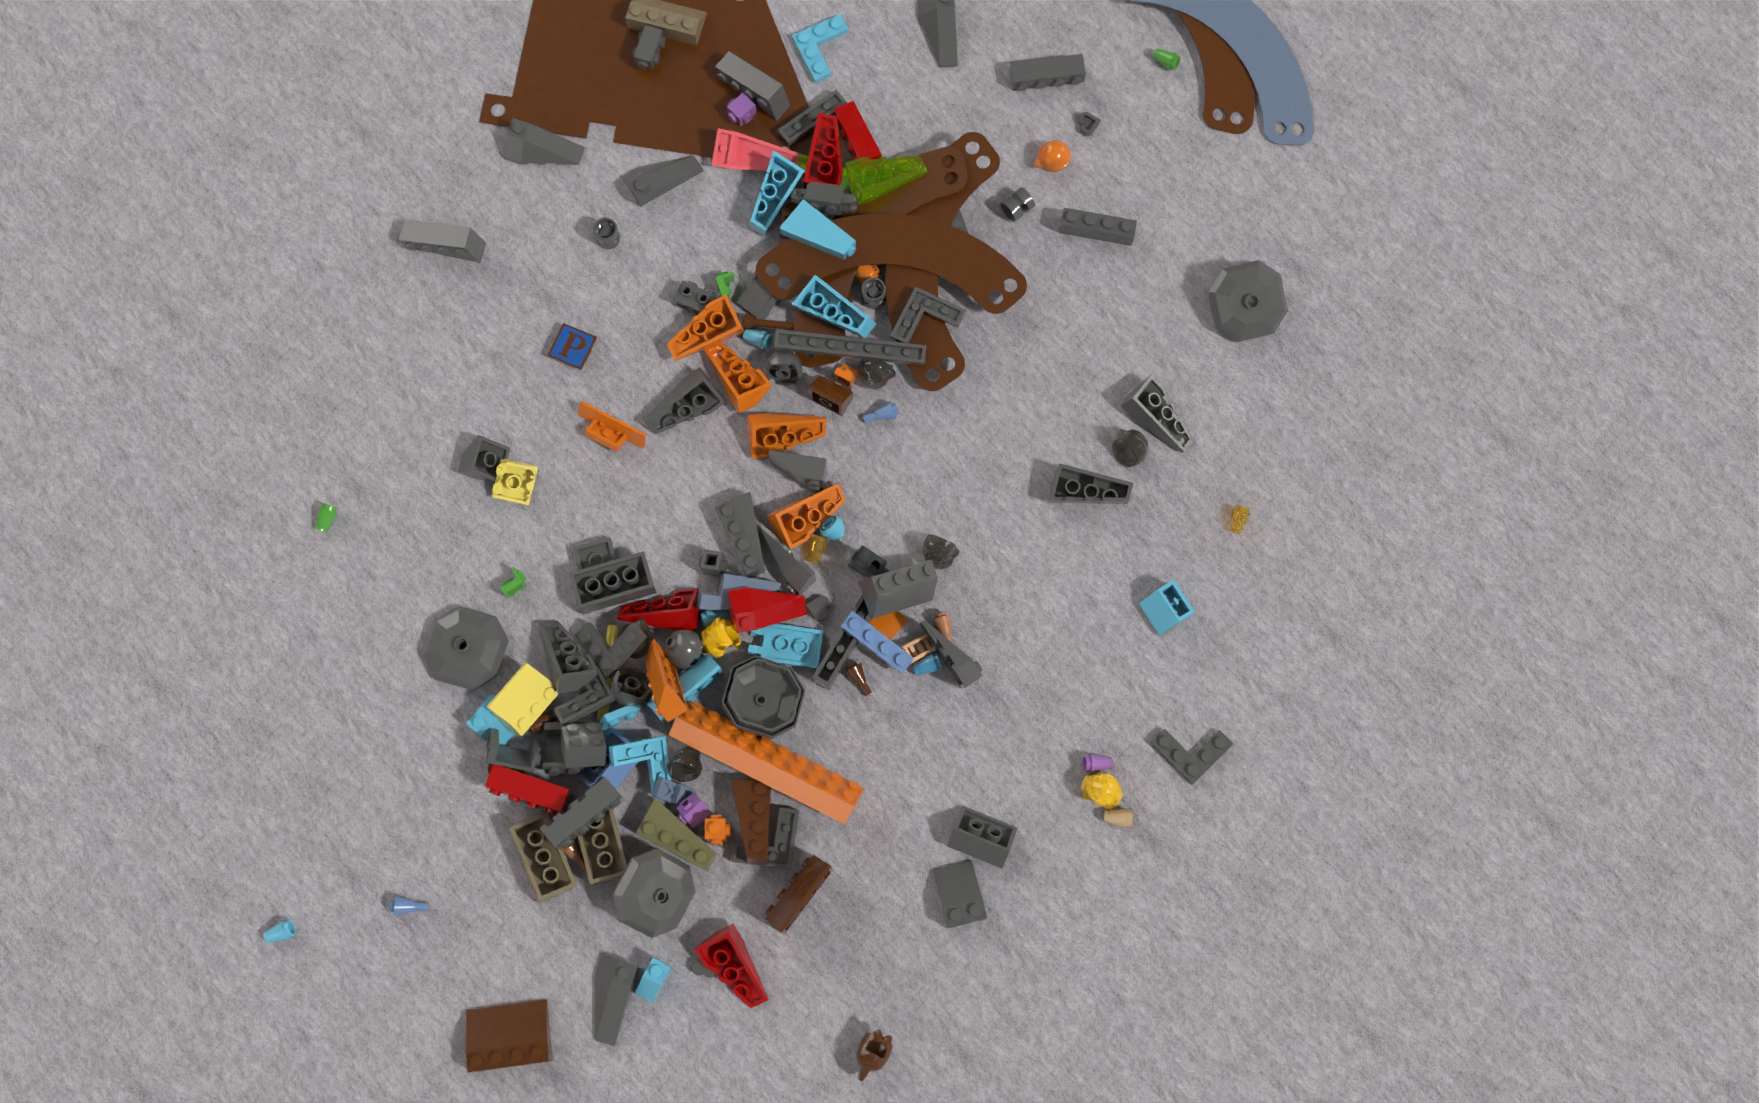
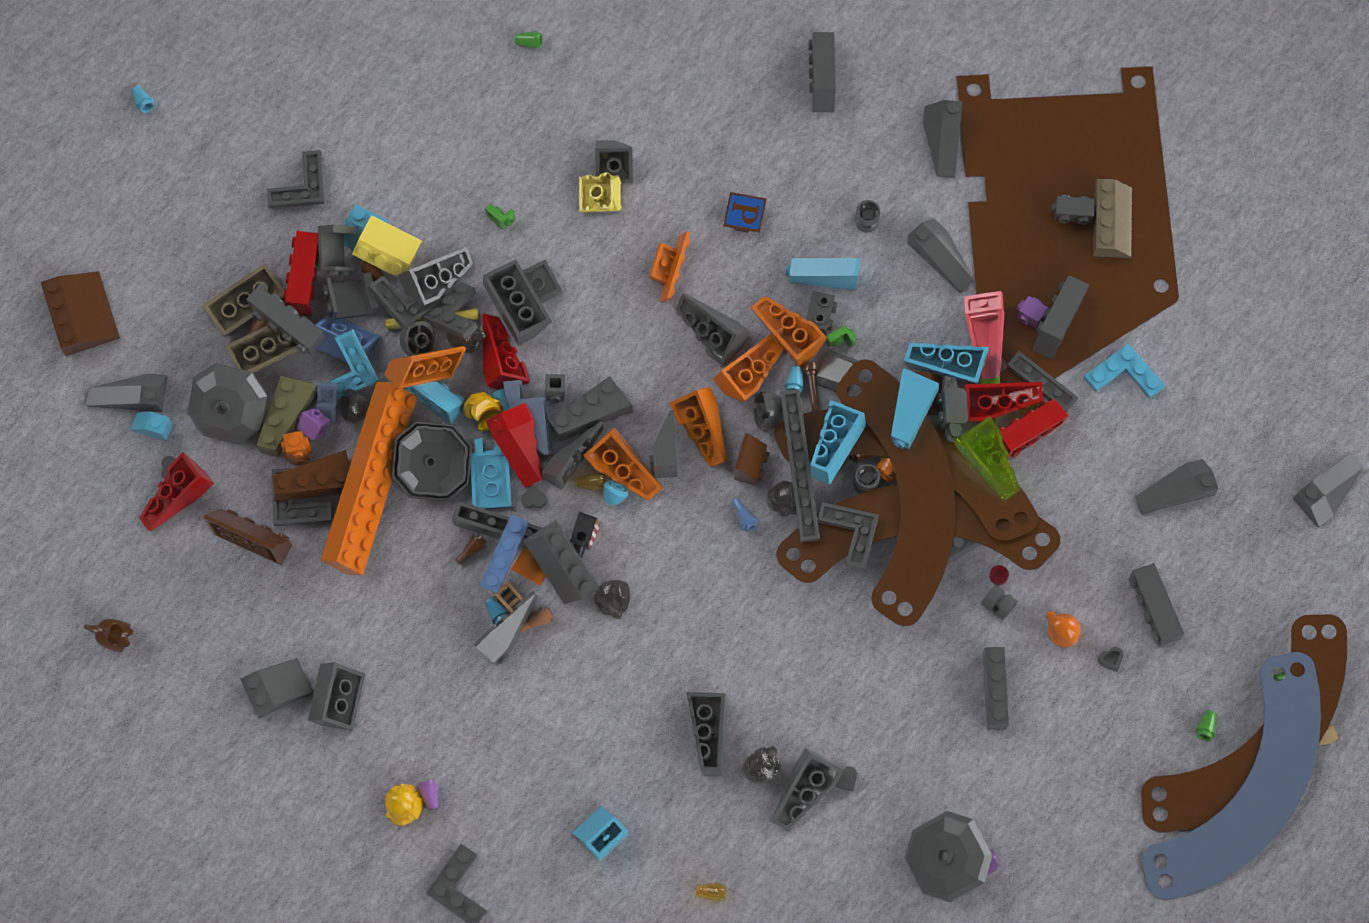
camera: 80 degrees right, 5 degrees down
(402, 906) = (182, 194): medium blue cone -> none
(437, 772) = (310, 193): none -> dark grey plate
(483, 651) = (435, 203): dark grey rock -> none
(583, 745) = (352, 308): dark grey brick -> none
(614, 718) = (385, 332): medium azure wing -> none
(655, 284) = (824, 272): none -> medium azure slope
(683, 648) = (465, 378): dark grey cylinder -> none
(846, 375) = (774, 472): orange bracket -> none
(989, 200) = (999, 575): none -> dark red tile
(1120, 817) = (379, 827): tan cone -> none
(1157, 373) = (847, 779): none -> dark grey tile

